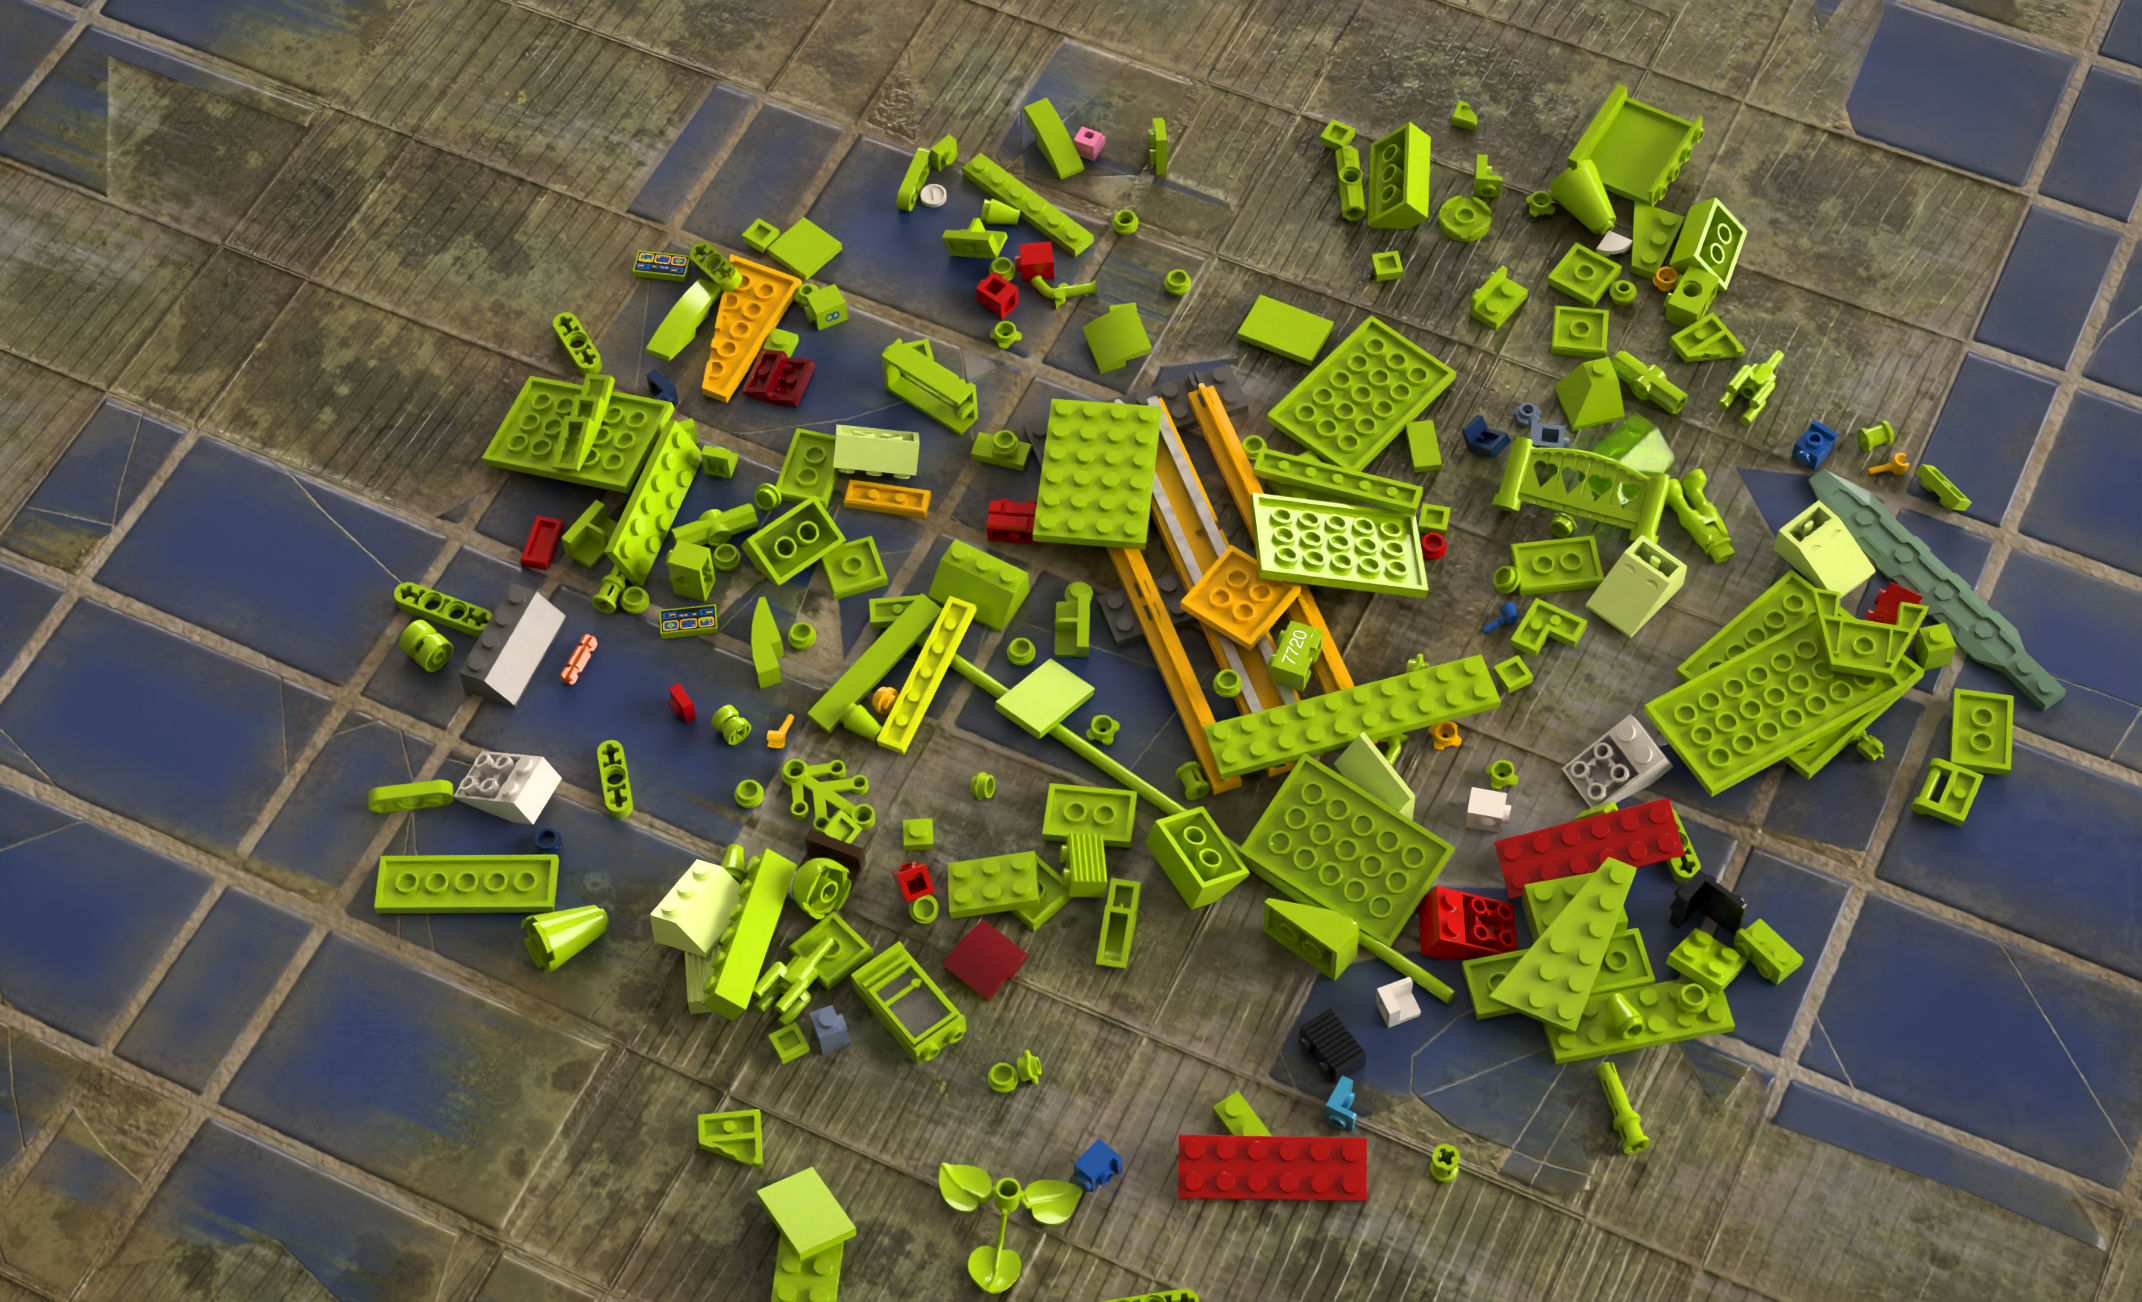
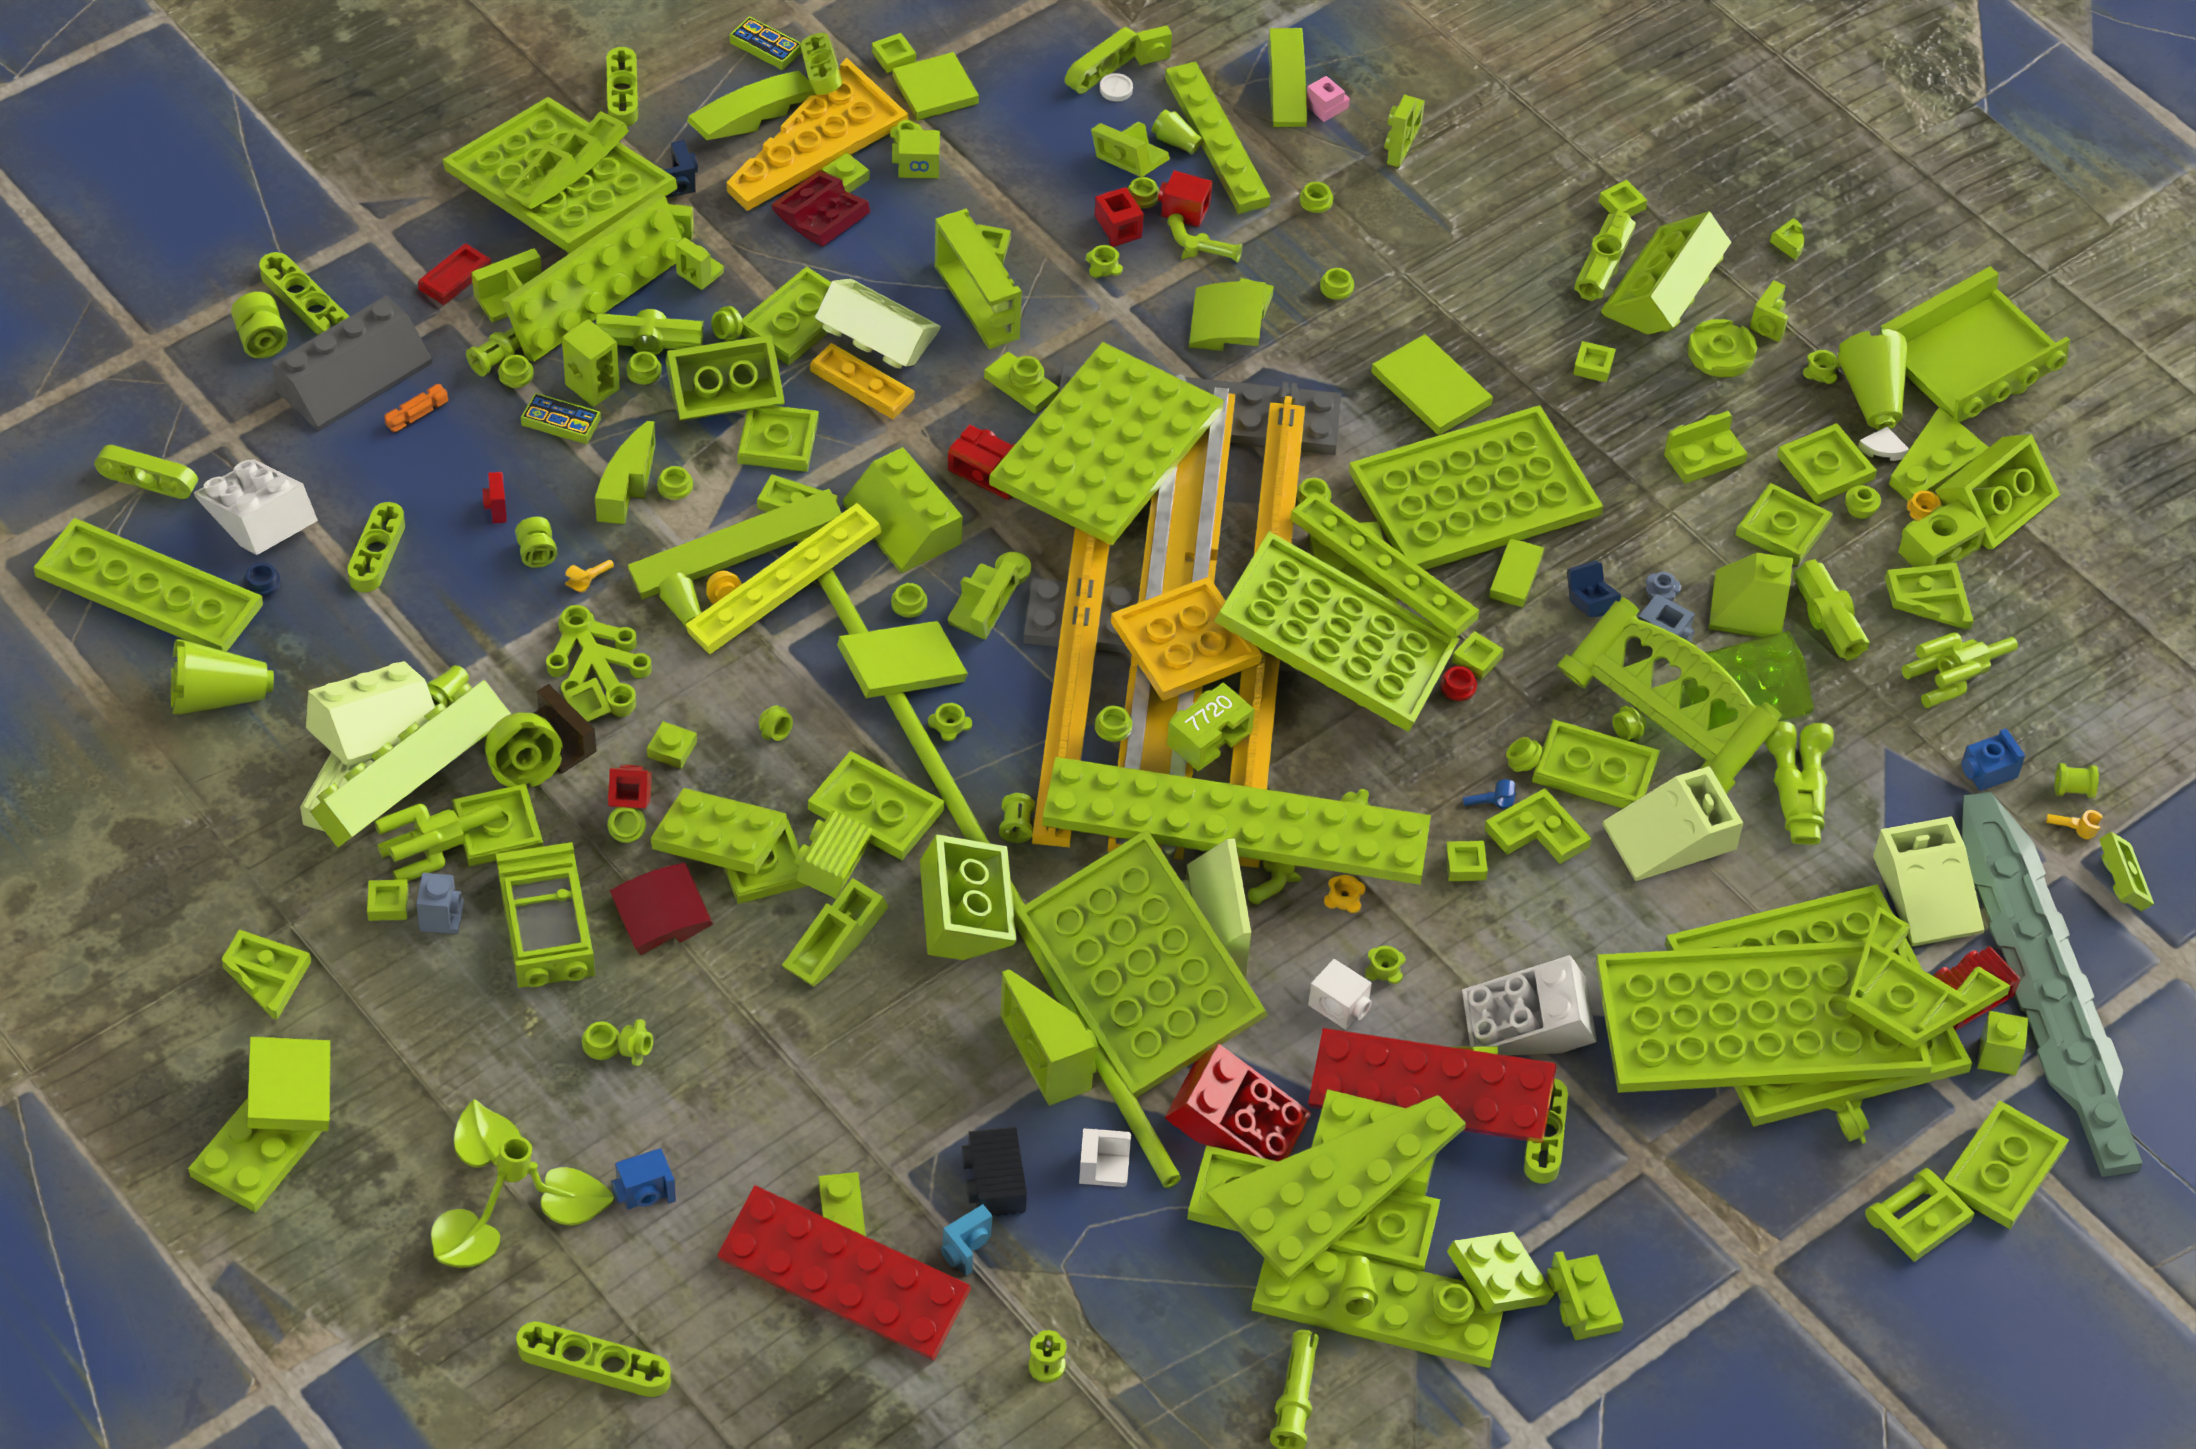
camera: 20 degrees right, 5 degrees down
(749, 794) = (511, 622): lime plate -> none
(1711, 899) = (1534, 1191): black bracket -> none

